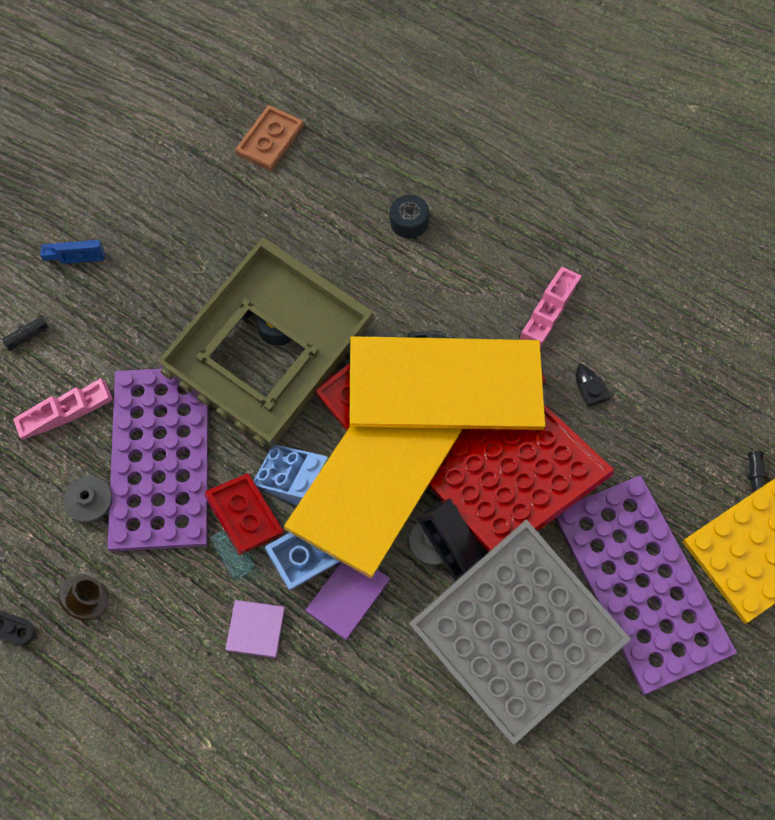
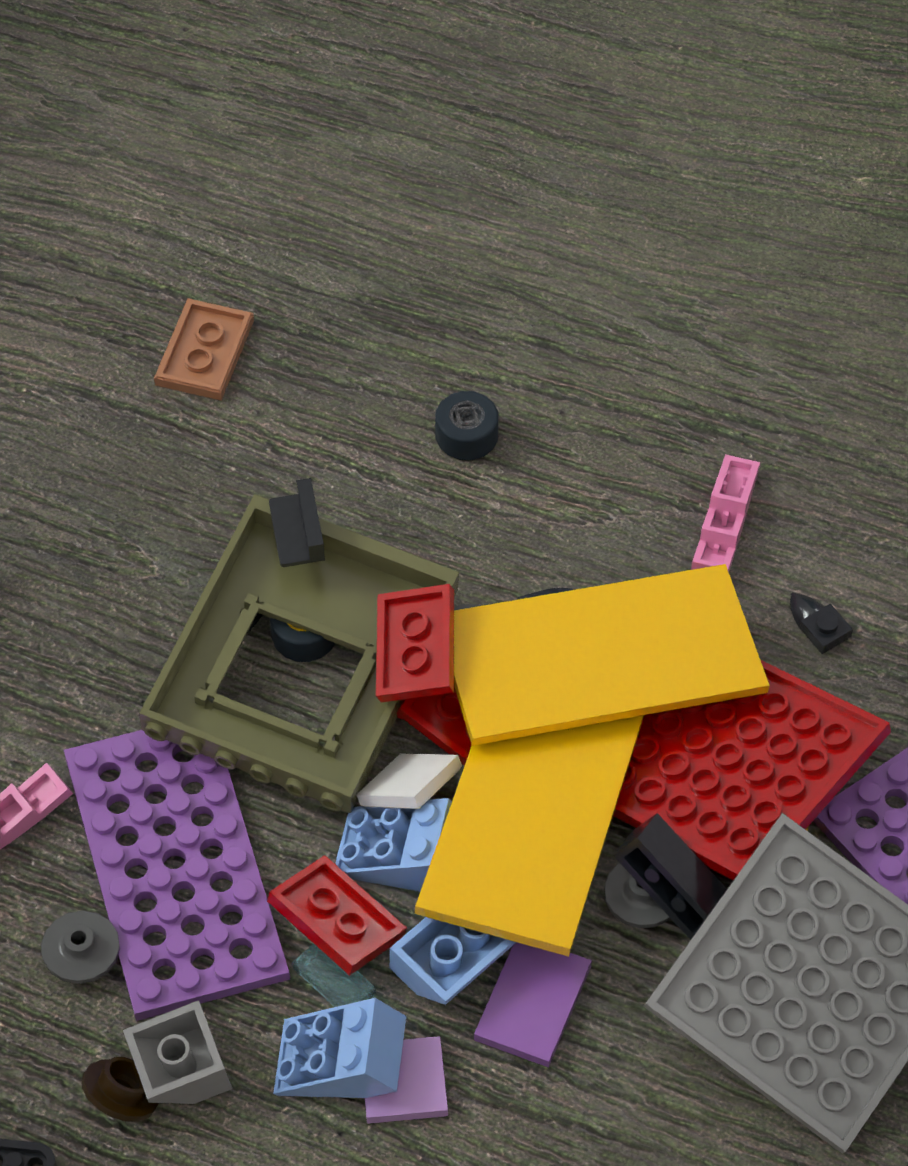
camera: 15 degrees left, 10 degrees down
(121, 585) = (177, 1057): none -> light grey slope
(220, 605) = (341, 1052): none -> light blue slope
(282, 263) = (297, 526): none -> black panel
(309, 438) = (409, 781): none -> white tile
(331, 353) = (415, 643): none -> red plate

